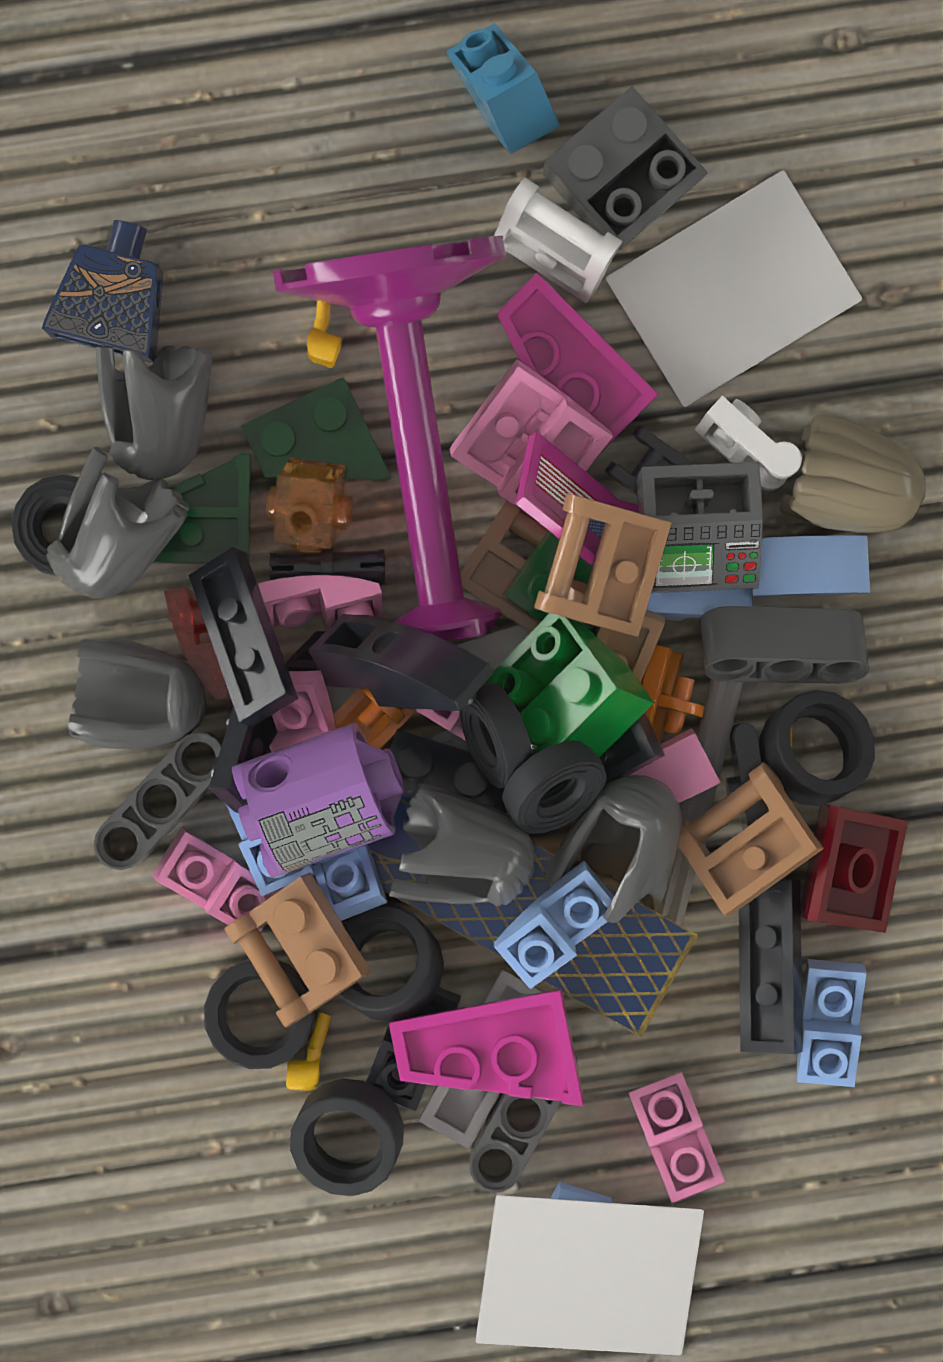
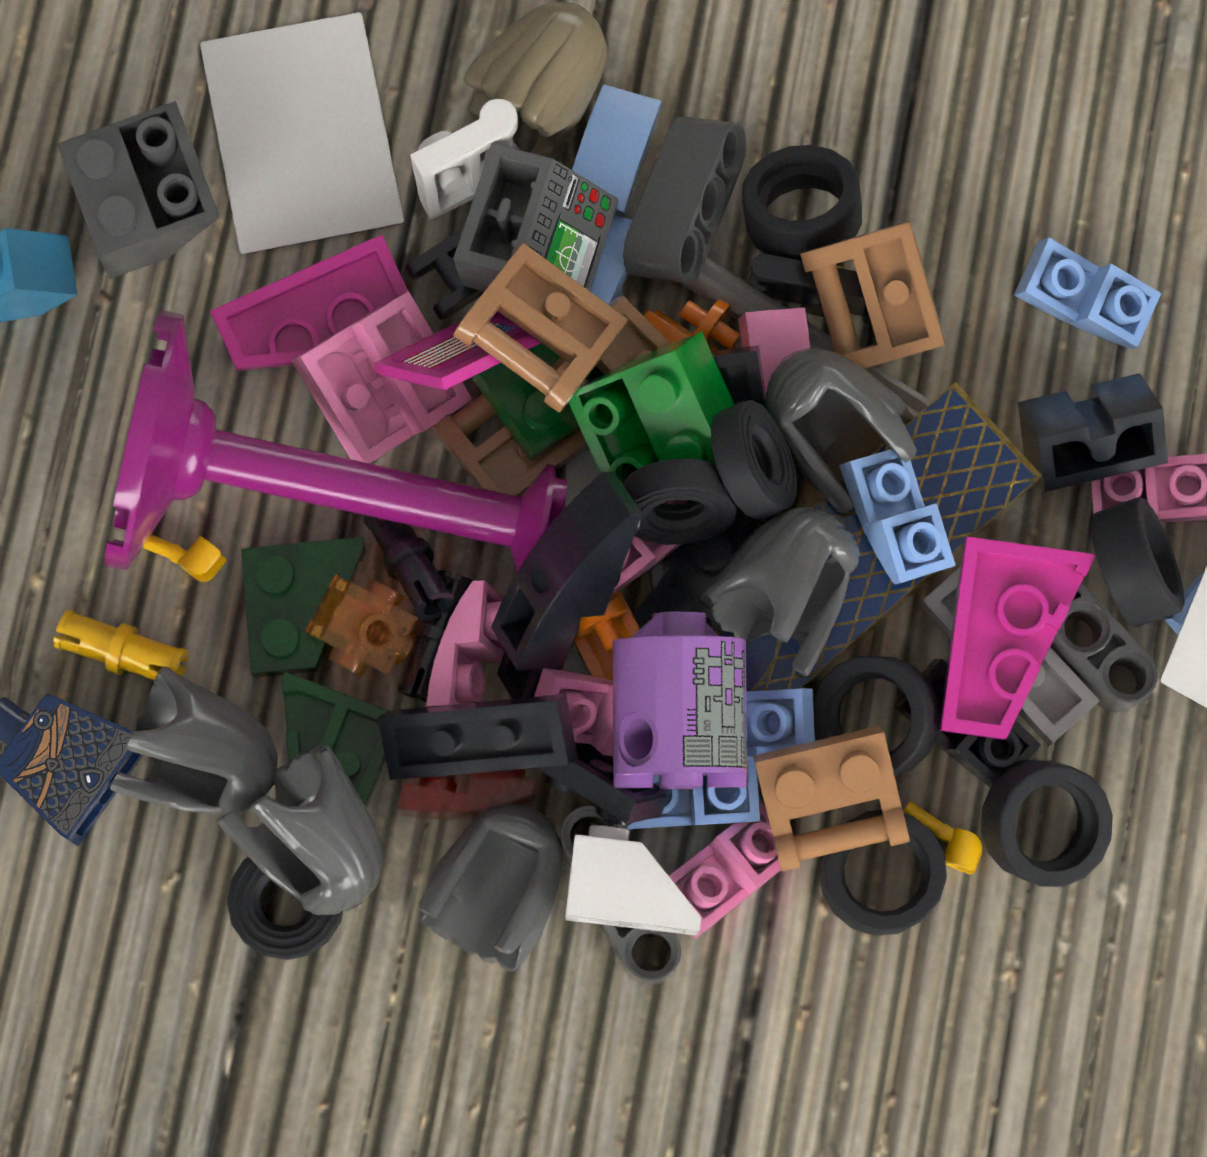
camera: 75 degrees left, 10 degrees down
(158, 803) = (624, 886): none -> white slope
(223, 308) = (117, 647): none -> yellow pin
(379, 524) = (410, 563): none -> black pin
(555, 241) = (205, 282): white plate -> none
(595, 1142) = (1137, 562): none -> black tyre
(698, 1070) = (1094, 437): none -> black brick
(771, 971) = (1017, 331): black plate -> none
(856, 871) = (949, 218): dark red slope -> none

